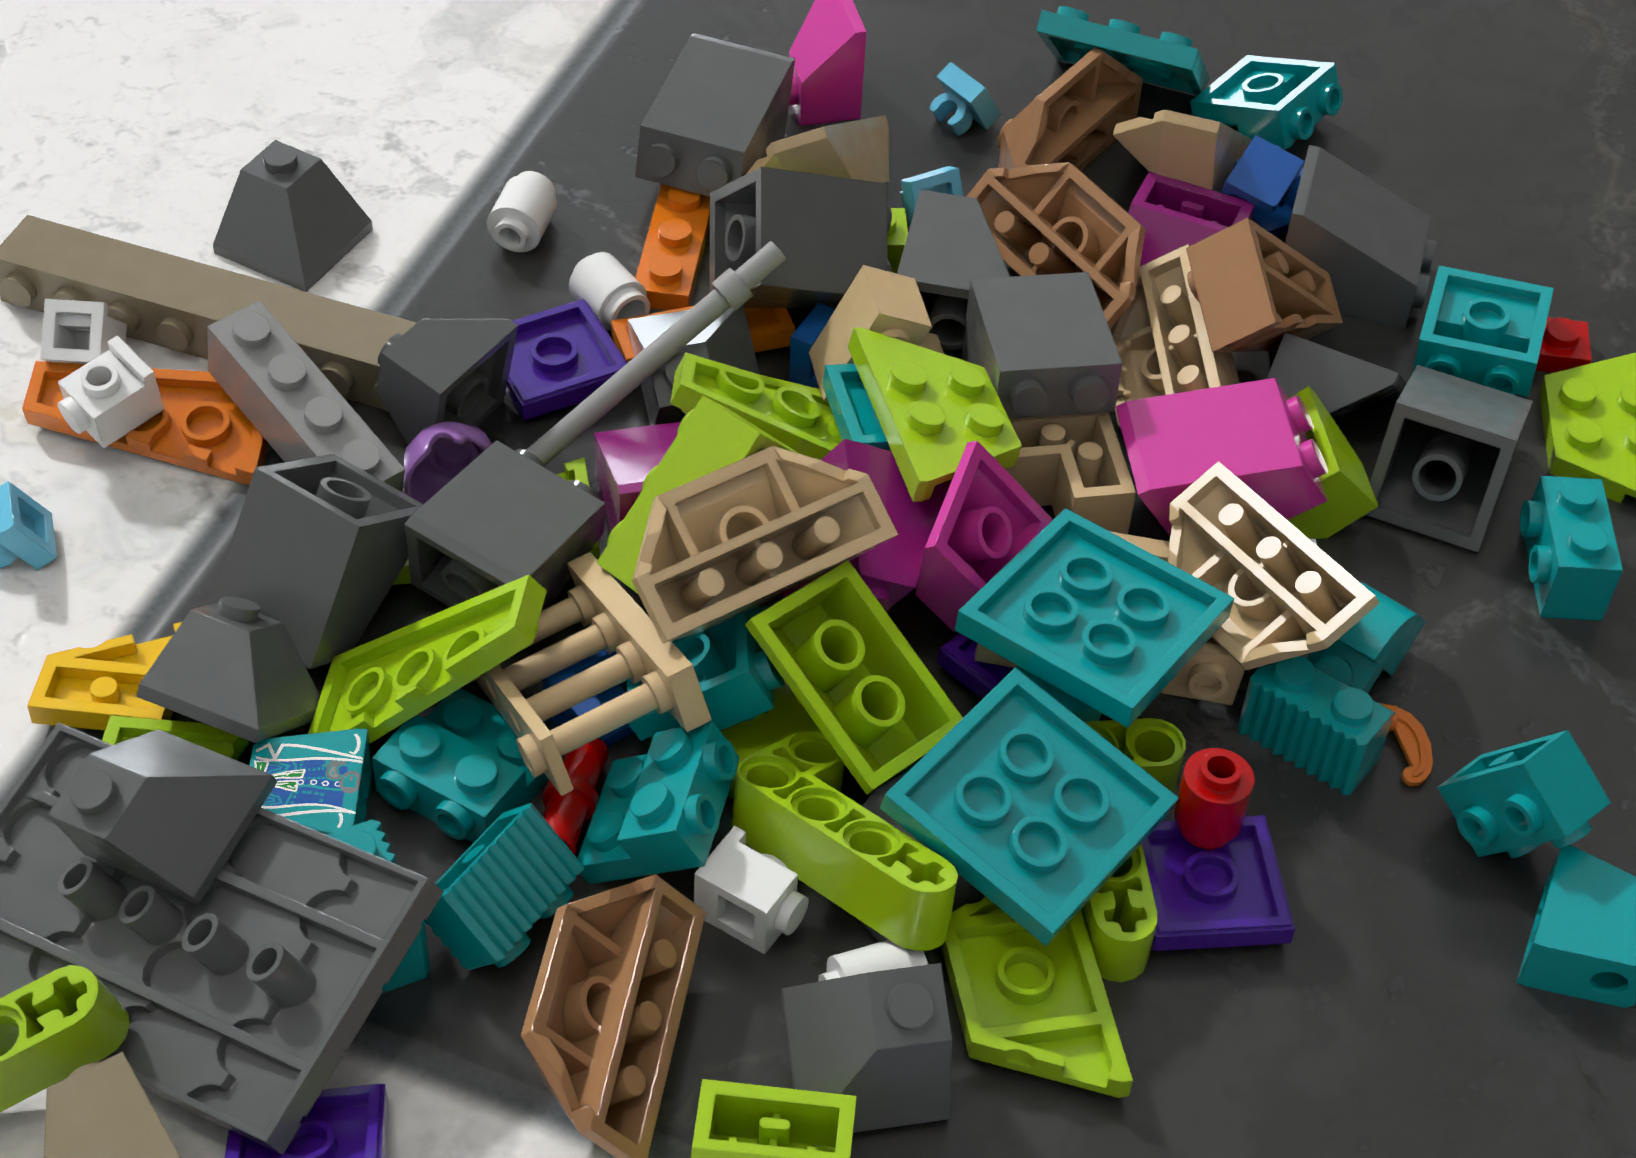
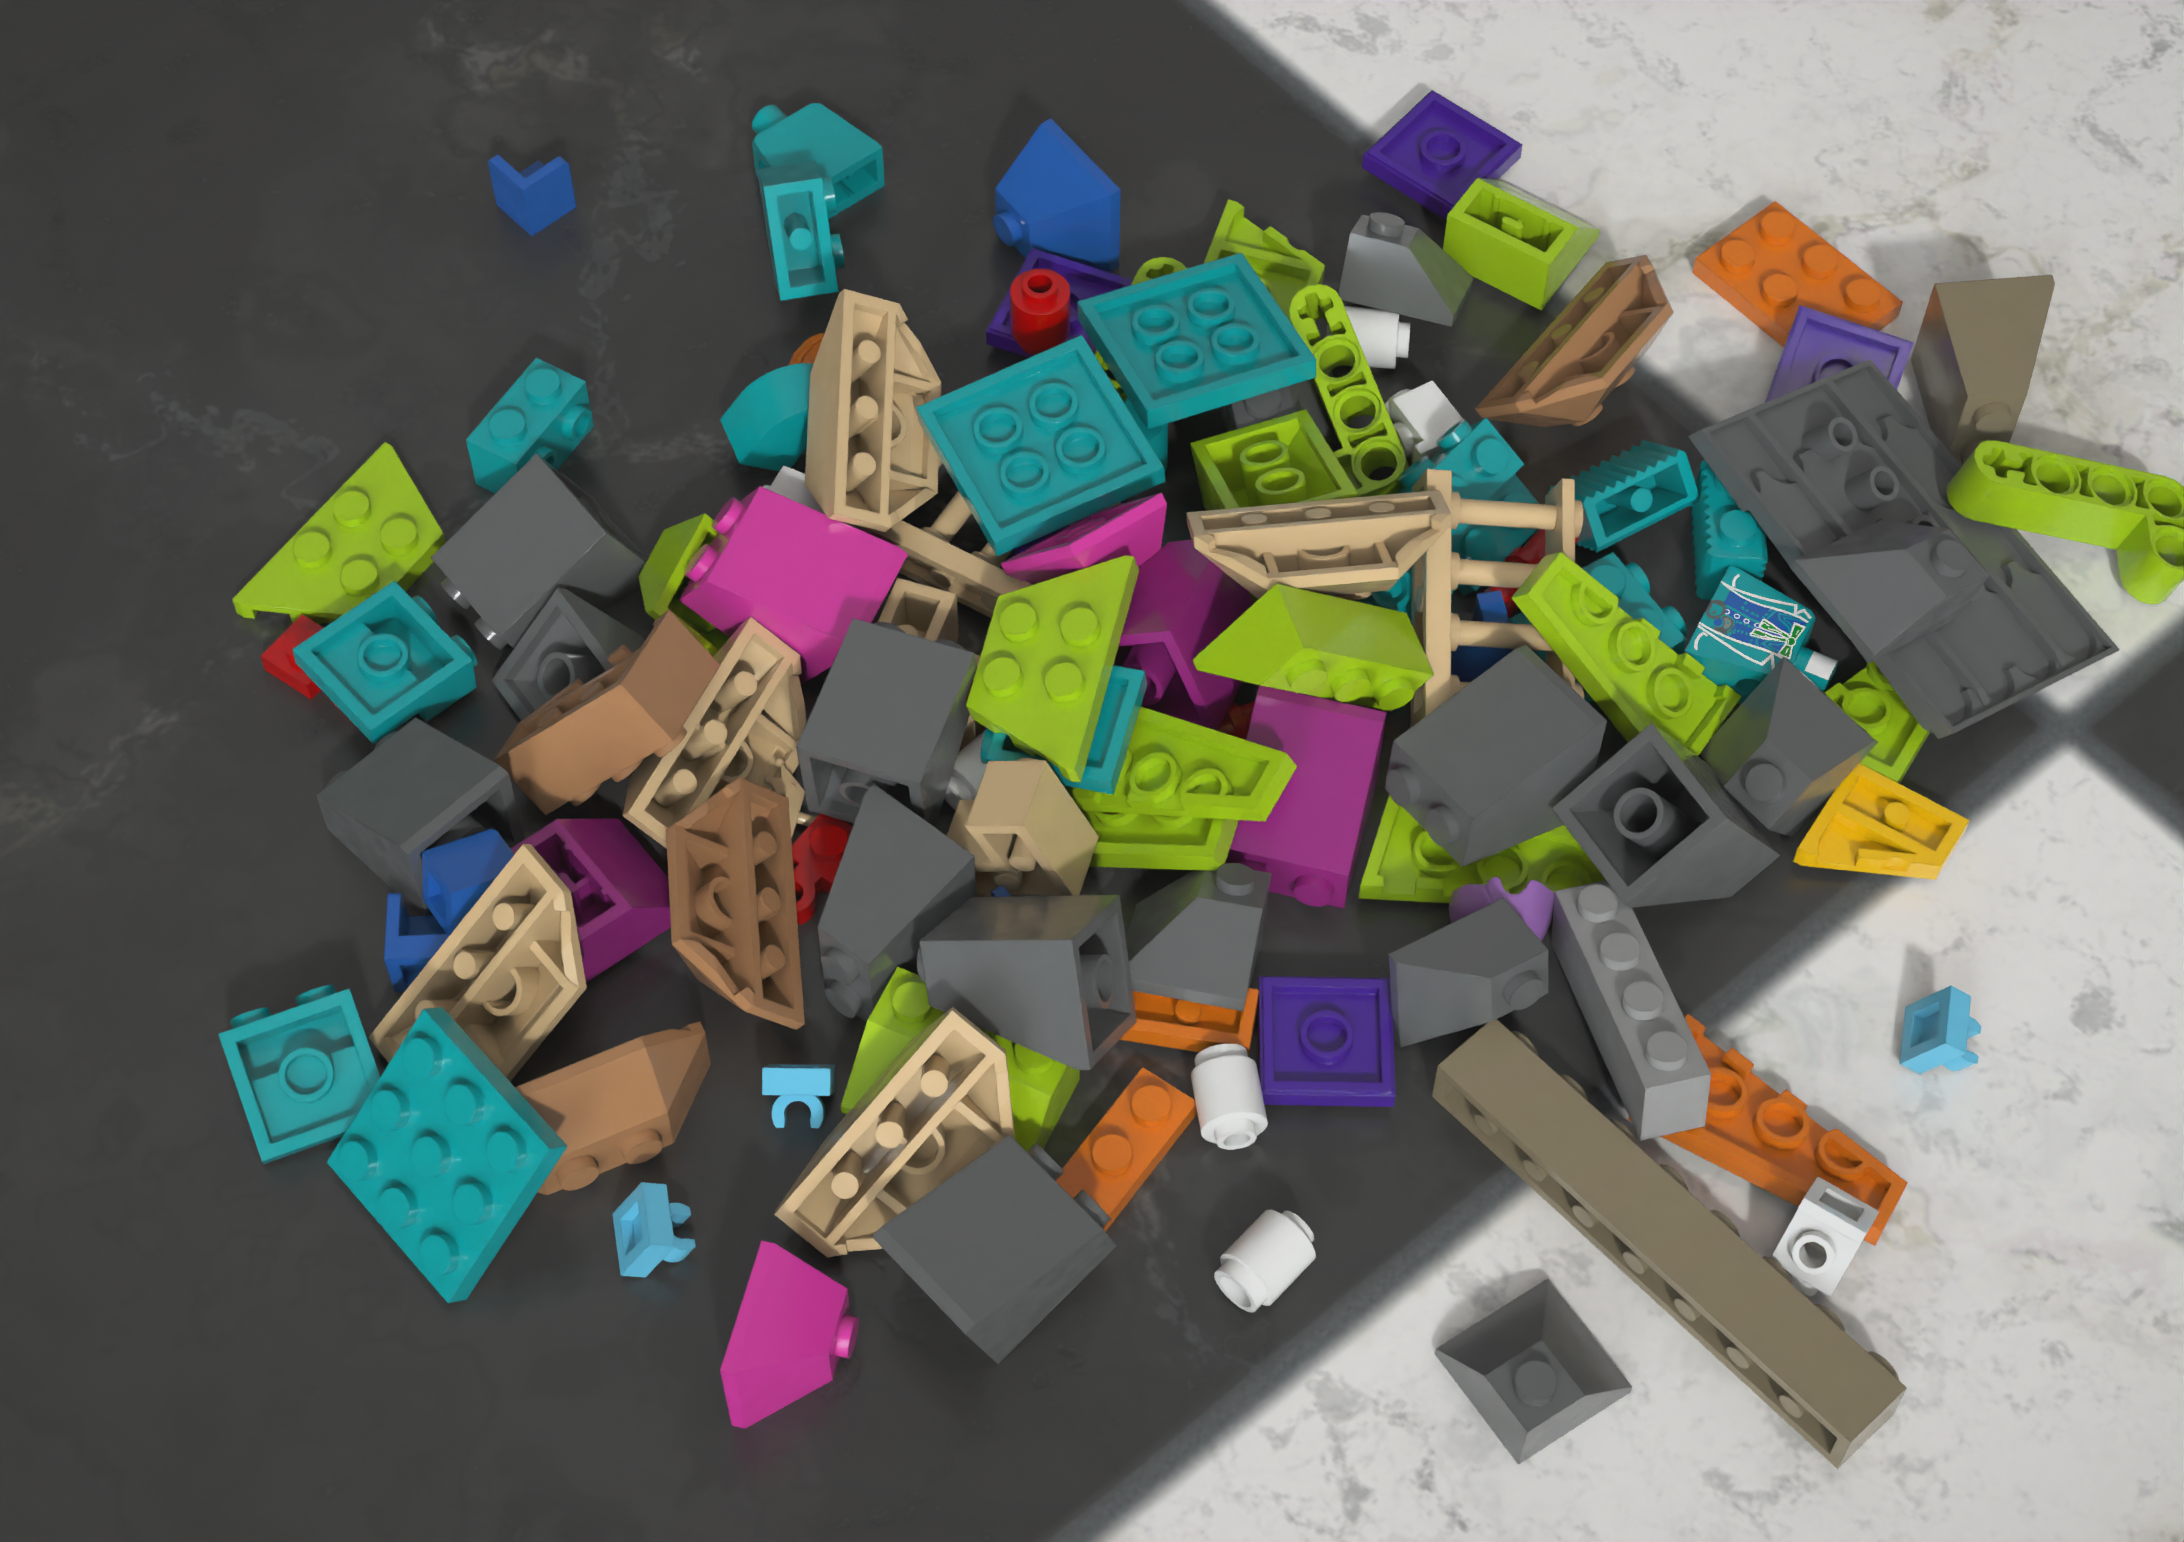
camera: 150 degrees left, 10 degrees up
(110, 394) = (1818, 1121): white brick -> none
(729, 291) = (1169, 872): light grey bar -> none
(1289, 970) = (1059, 202): none -> blue slope

